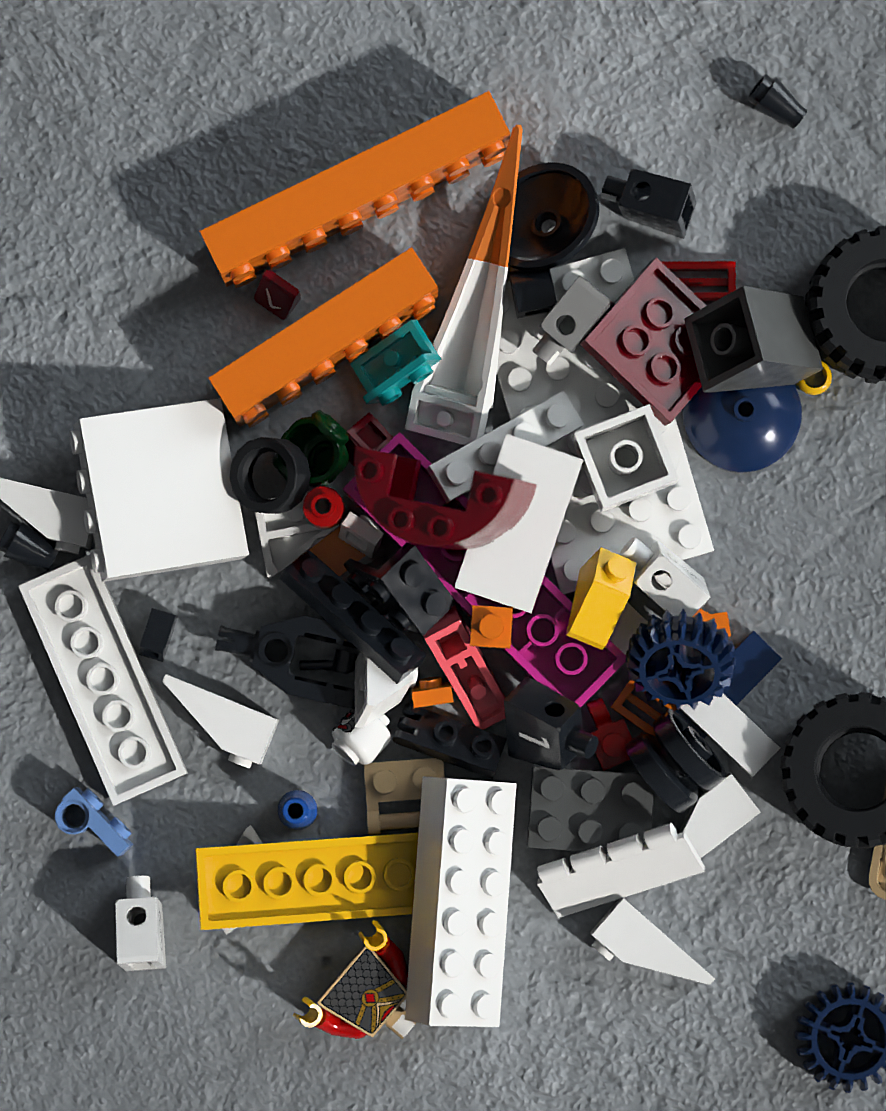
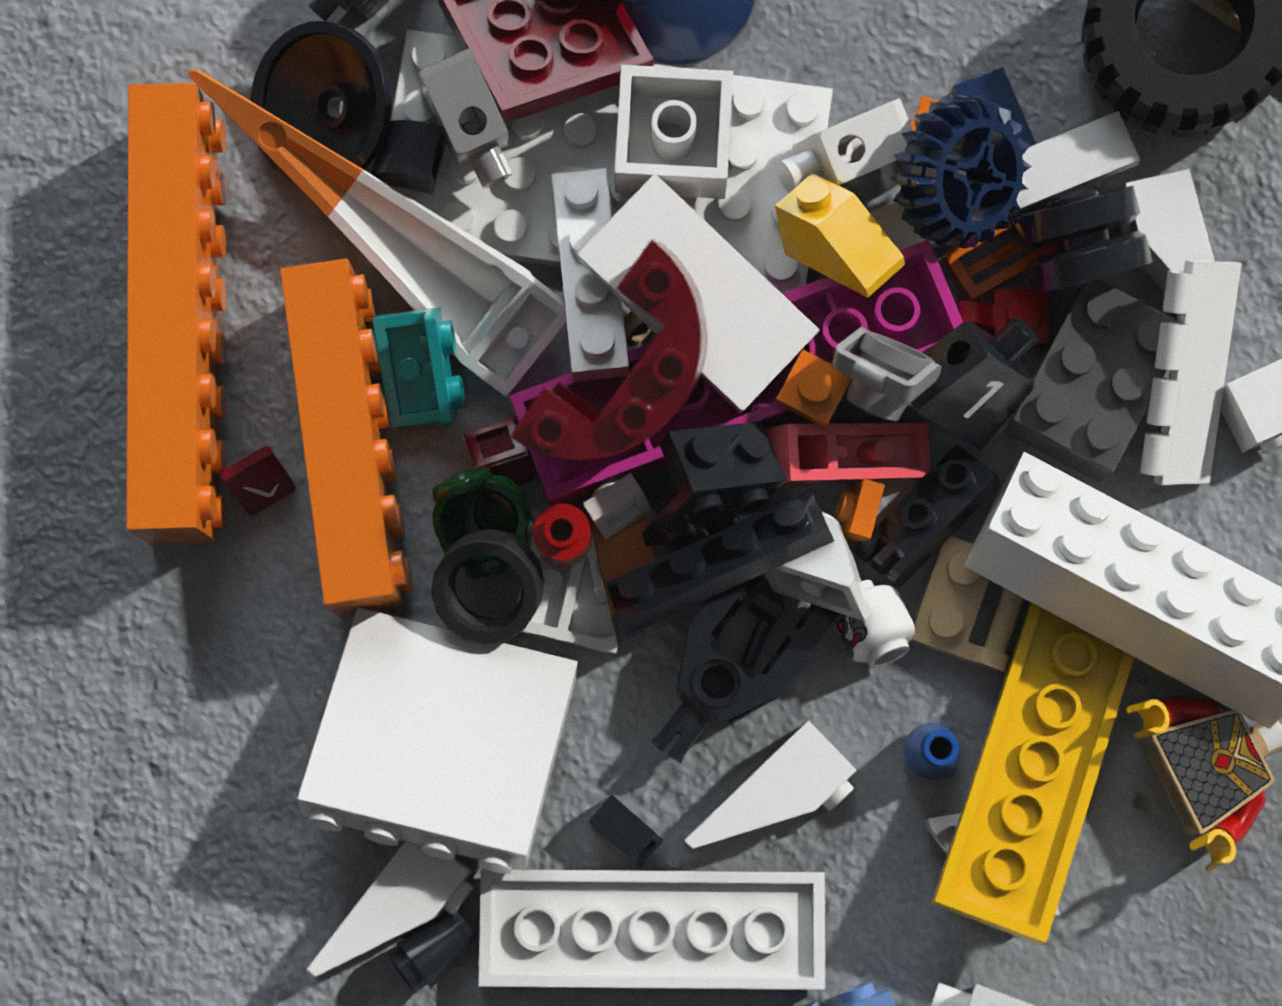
camera: 65 degrees left, 5 degrees down
(519, 670) = (884, 374): none -> light grey piece

